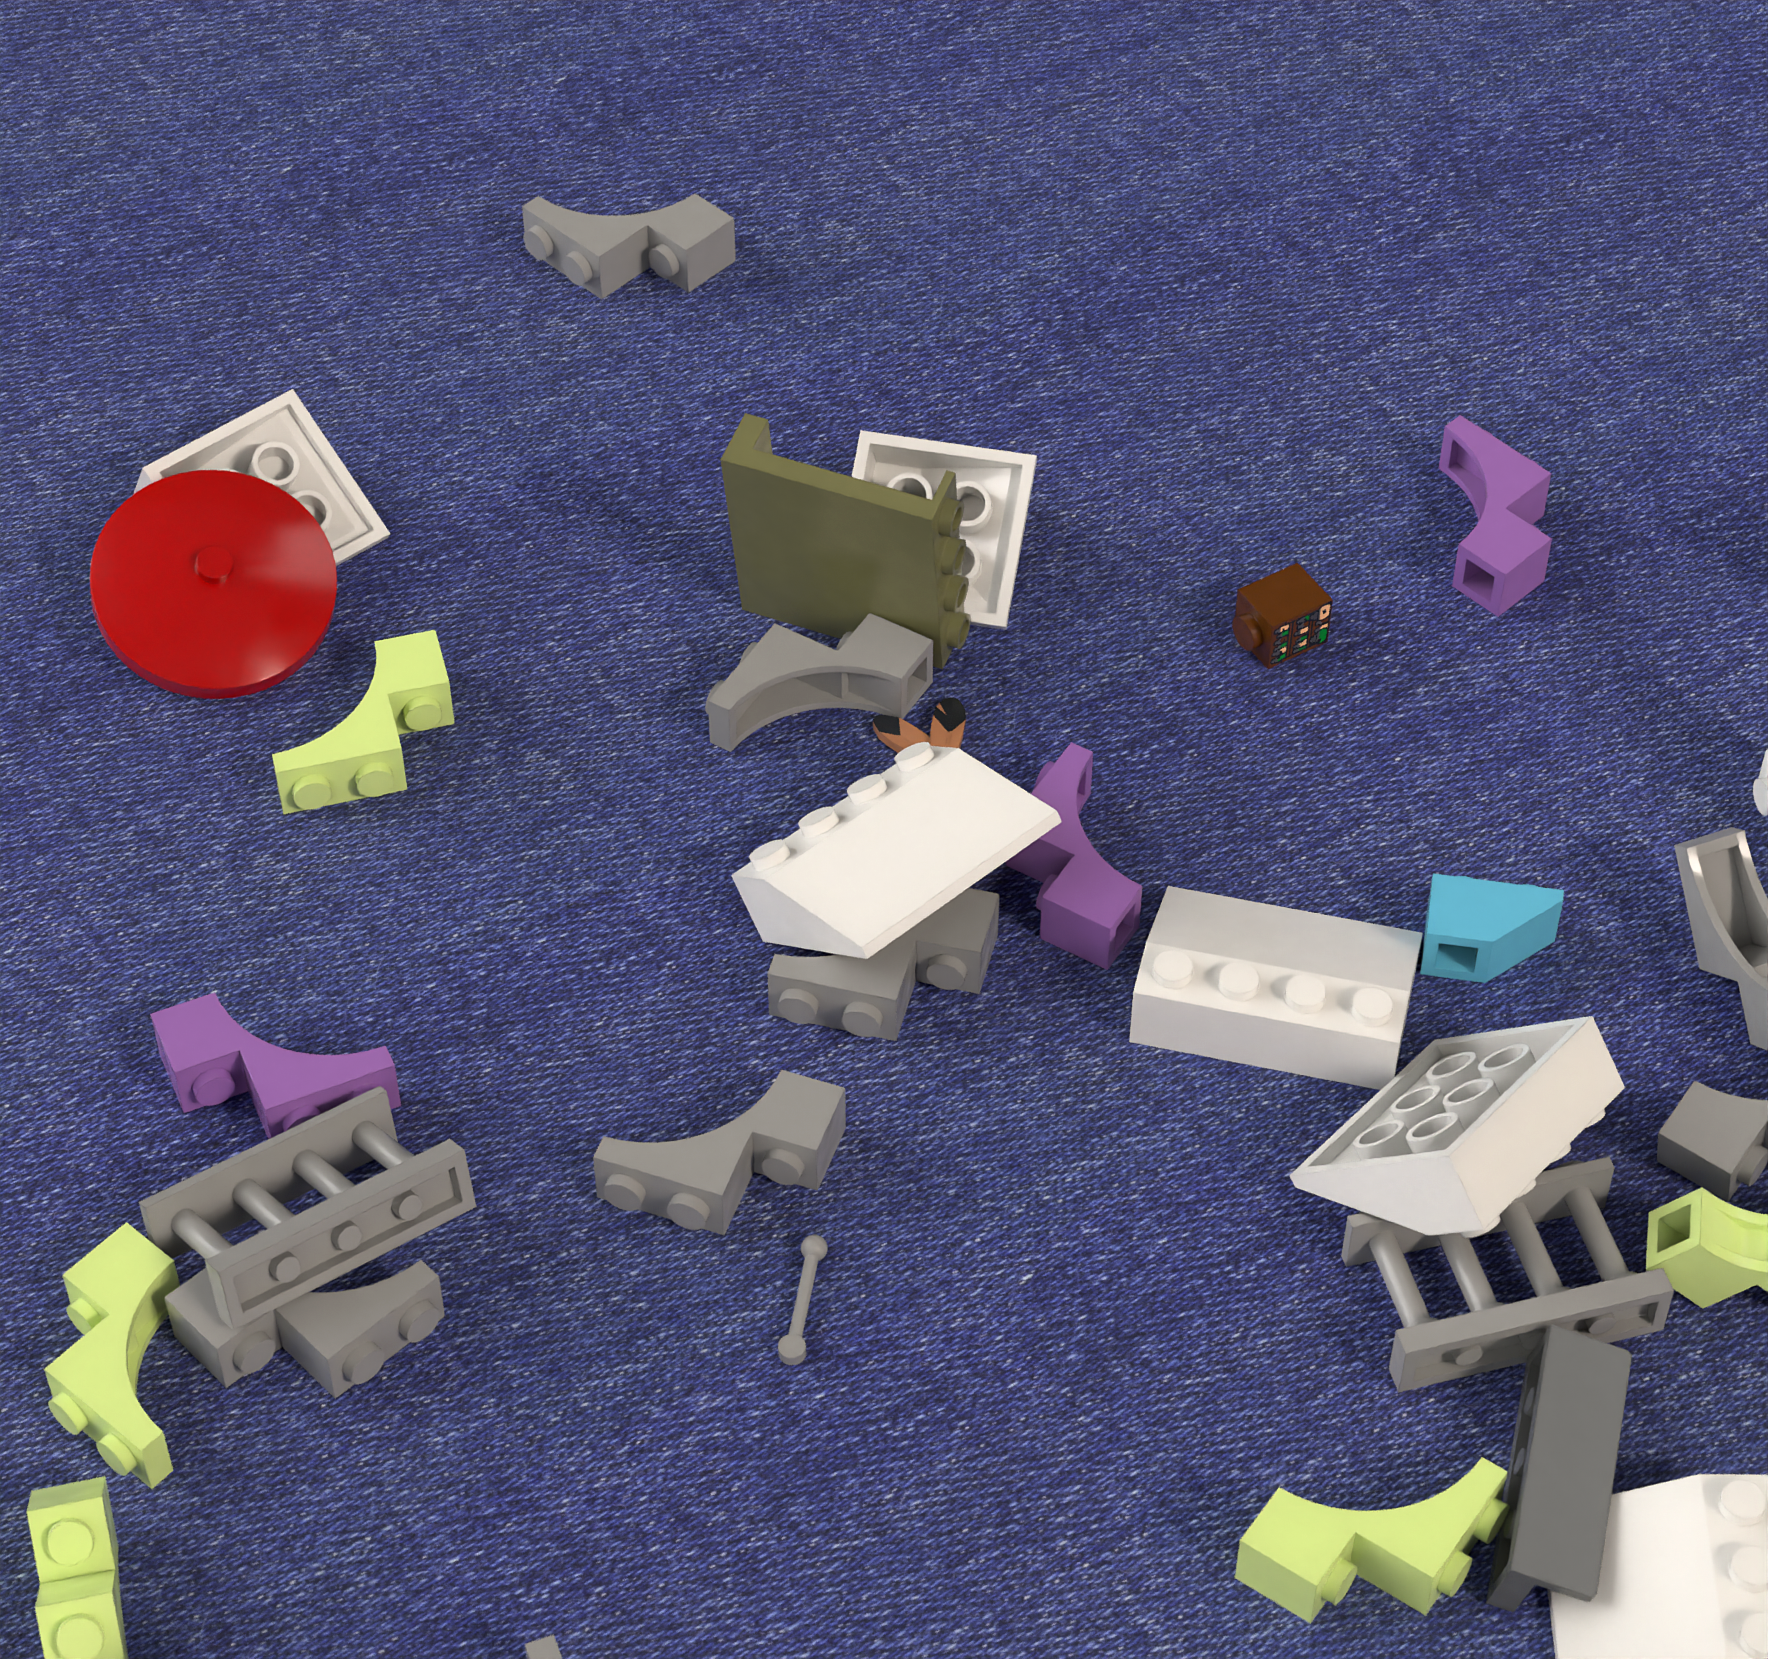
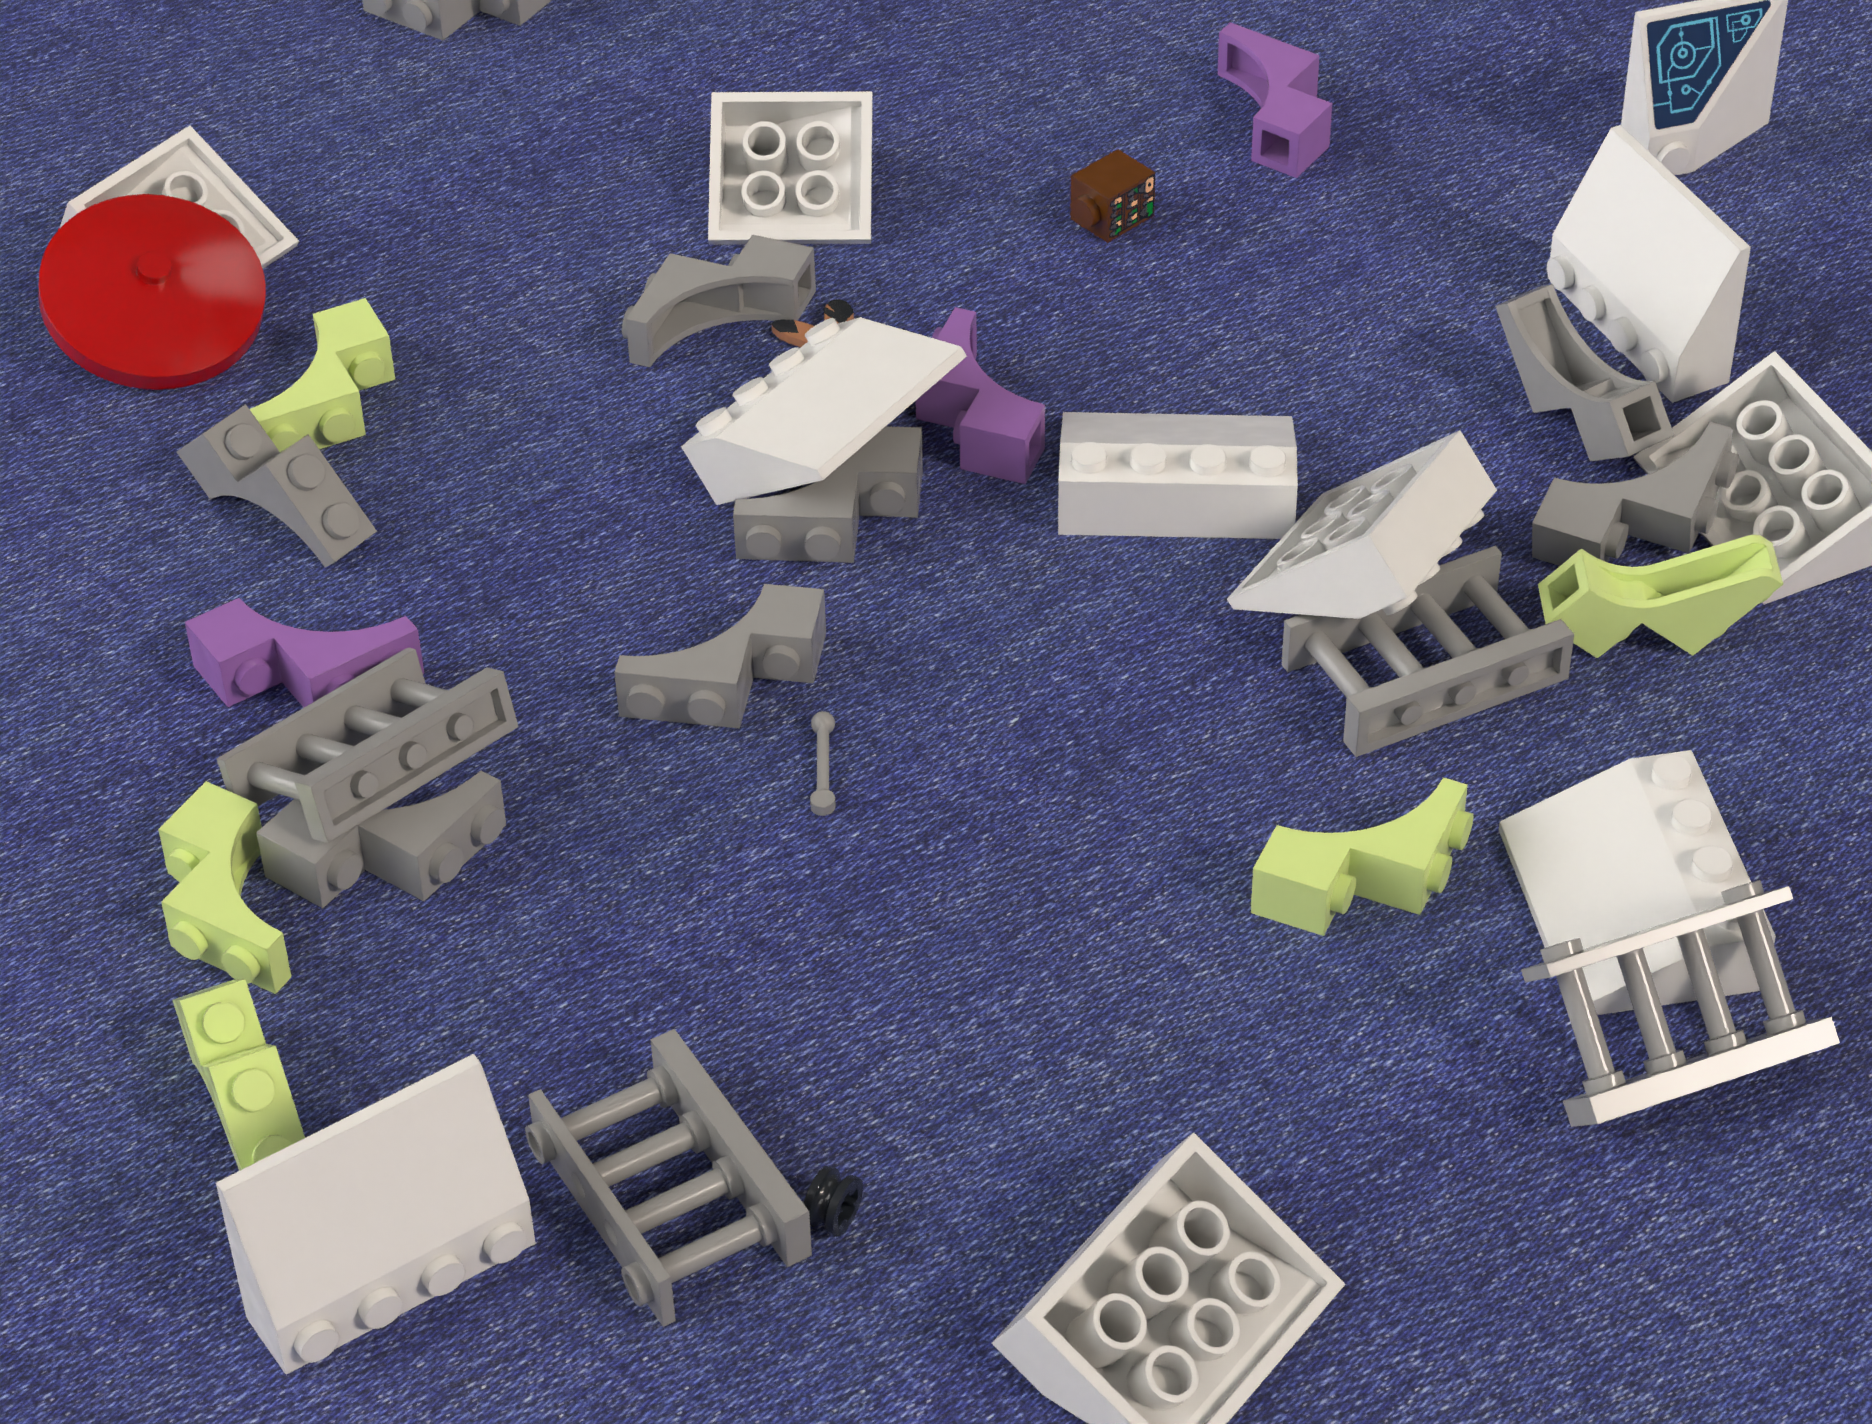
camera: 10 degrees left, 5 degrees down
(296, 846) = (291, 484): none -> light grey arch
(839, 547) = (721, 168): olive panel -> none
(1485, 926) = (1345, 400): medium azure slope -> none
(1561, 1469) = (1510, 781): panel -> none

